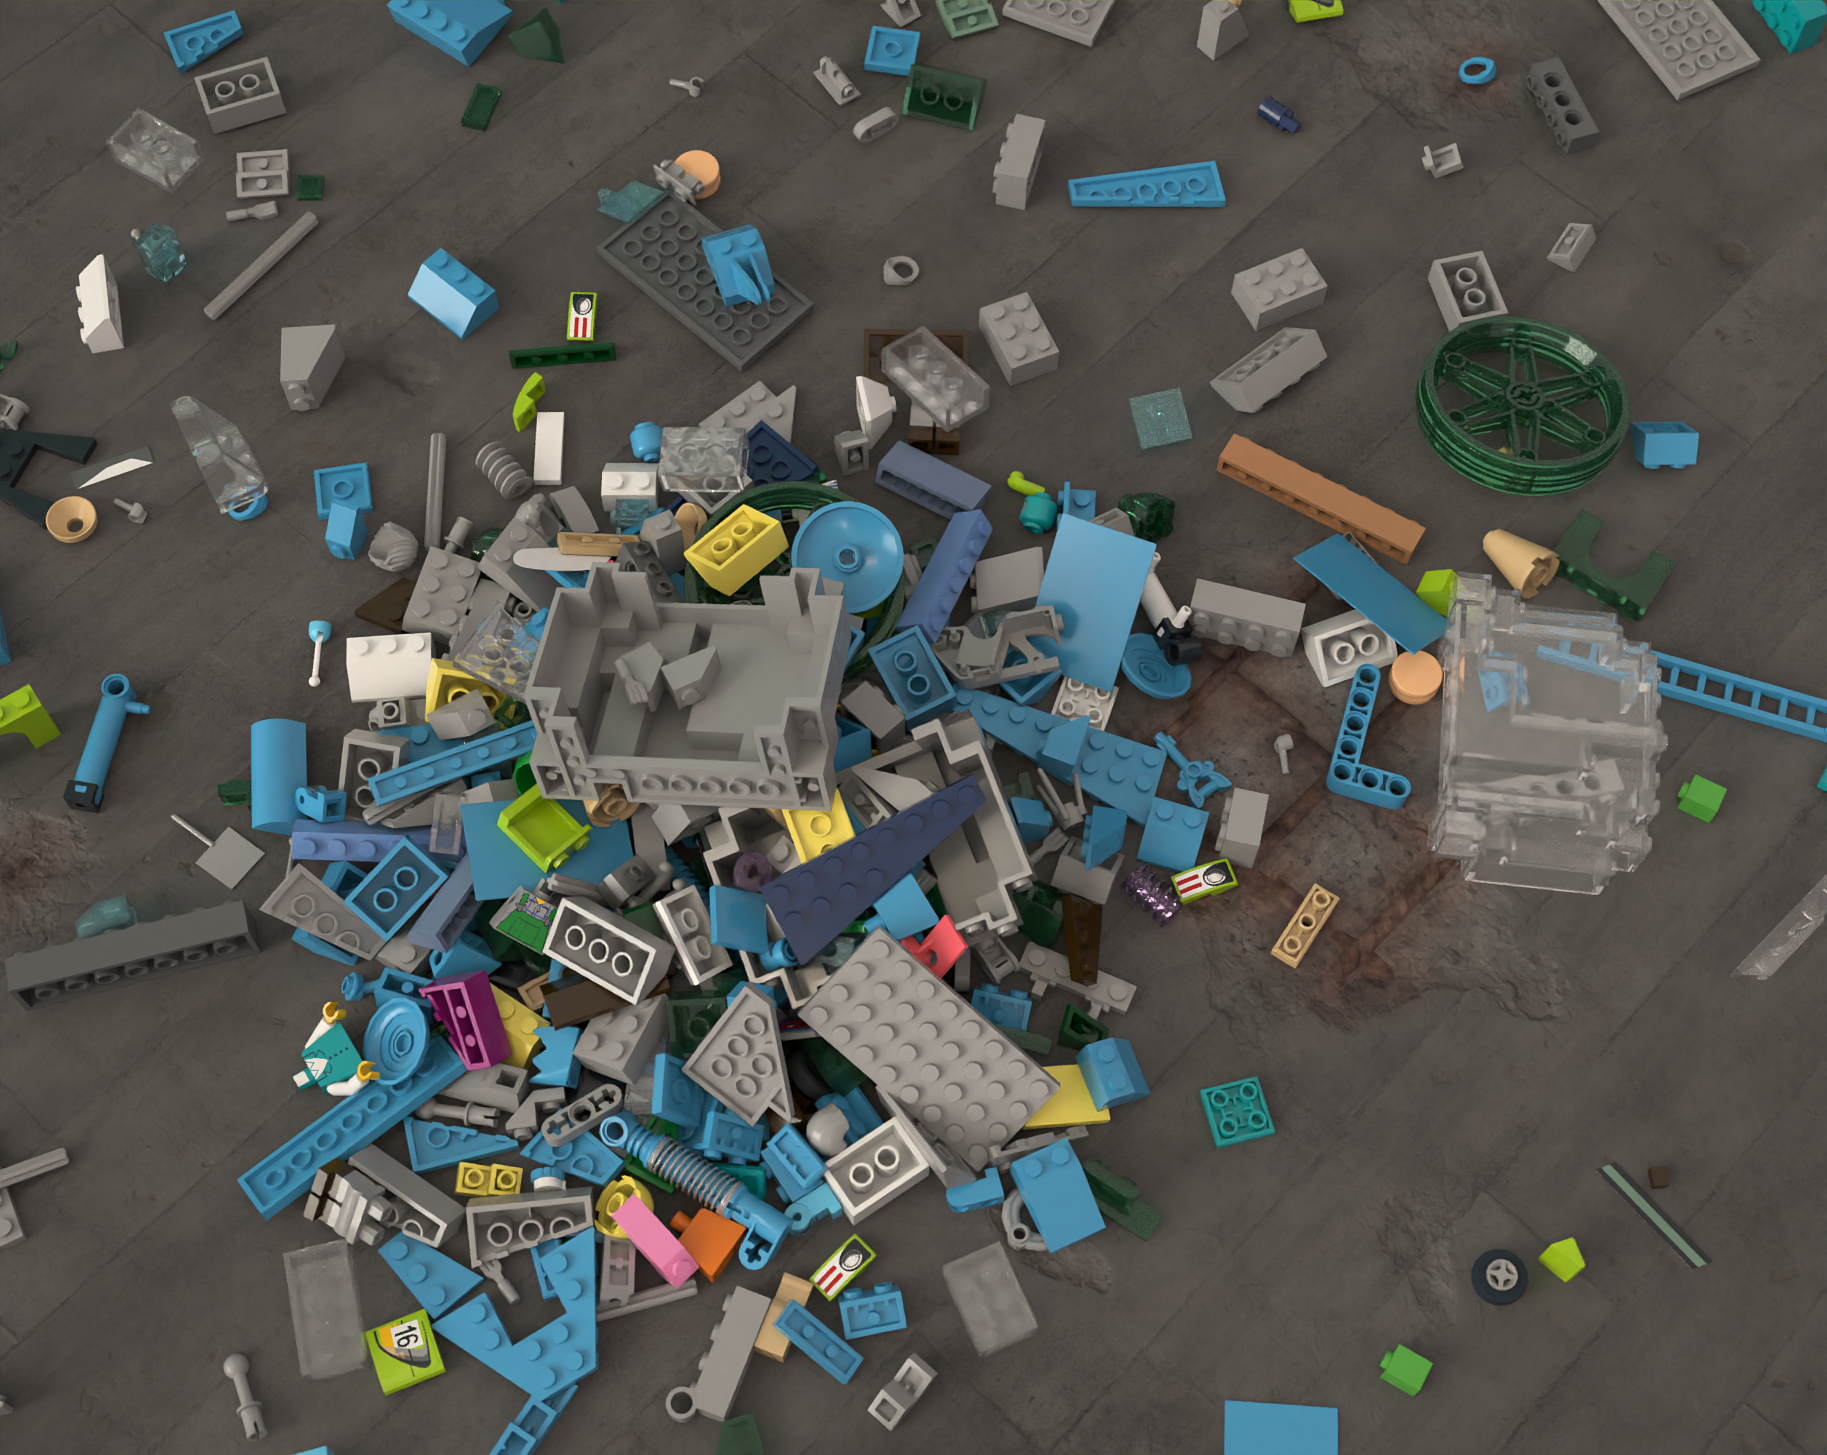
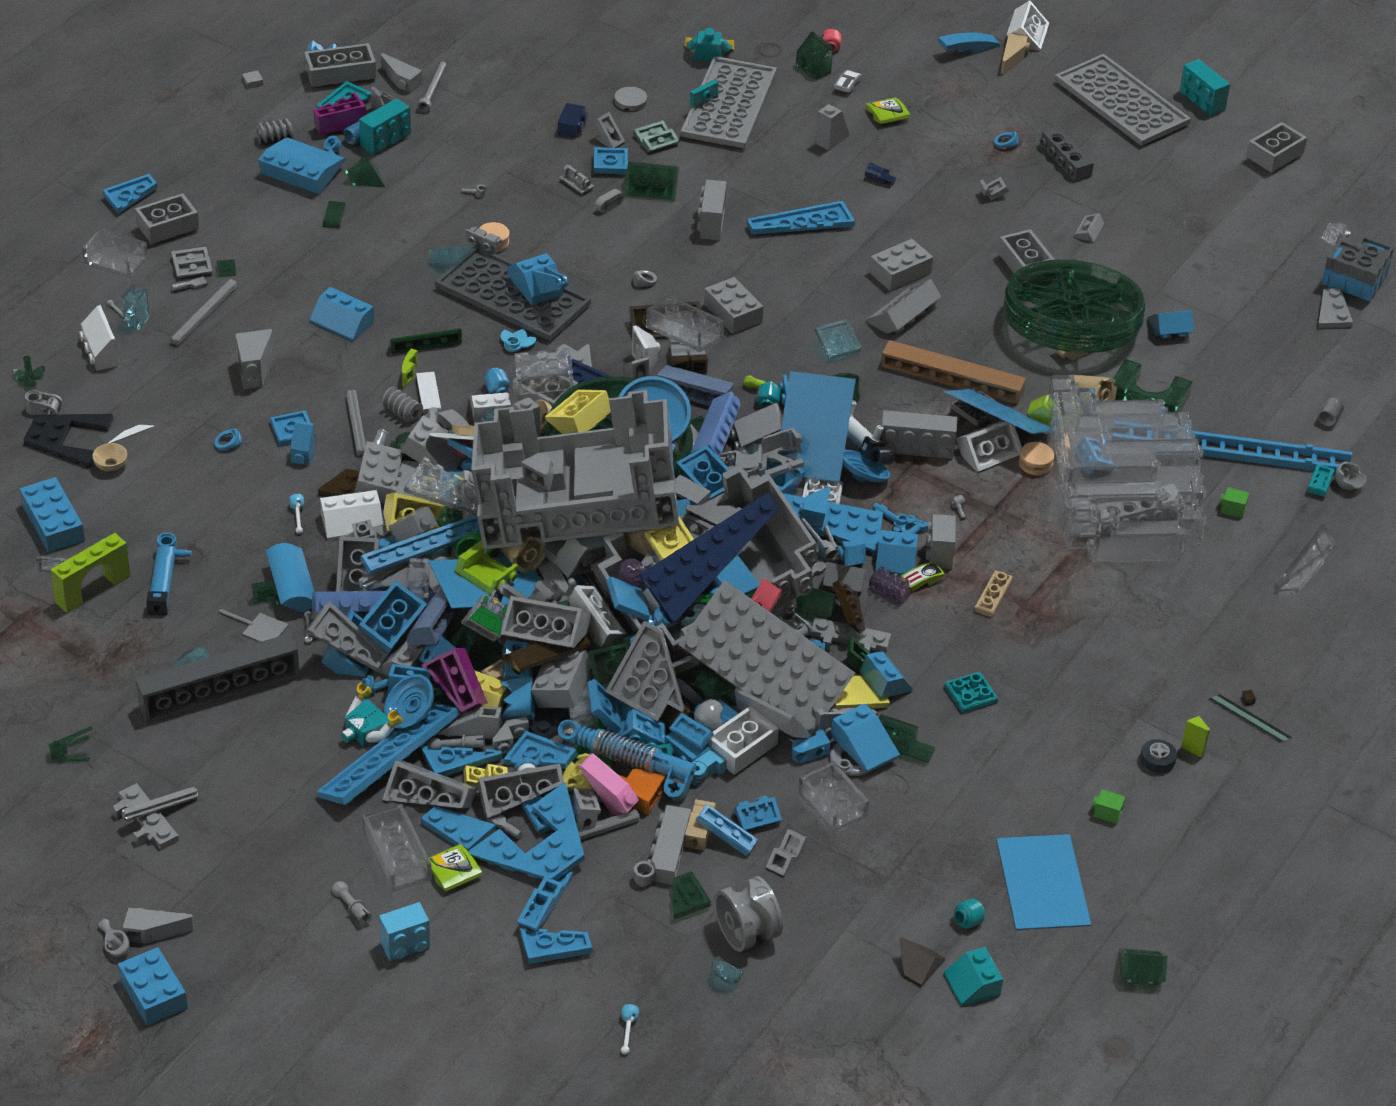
camera: 10 degrees left, 20 degrees down
(136, 511) = (151, 452): light grey hand -> none
(222, 454) = (198, 399): clear windscreen -> none
(321, 804) = (331, 583): dark azure leg -> none
(348, 1202) = (405, 788): light grey hips -> none
(393, 548) = (337, 451): light grey hair -> none
(579, 1127) = (532, 736): light grey beam -> none
(582, 317) = (433, 319): slope -> none
(634, 690) = (537, 473): light grey piece -> none
(692, 676) = (570, 467): light grey slope -> none
(696, 363) = (517, 340): none -> medium azure plate
(843, 1267) = (732, 794): slope -> none
(1353, 741) = (1009, 513): dark azure beam -> none

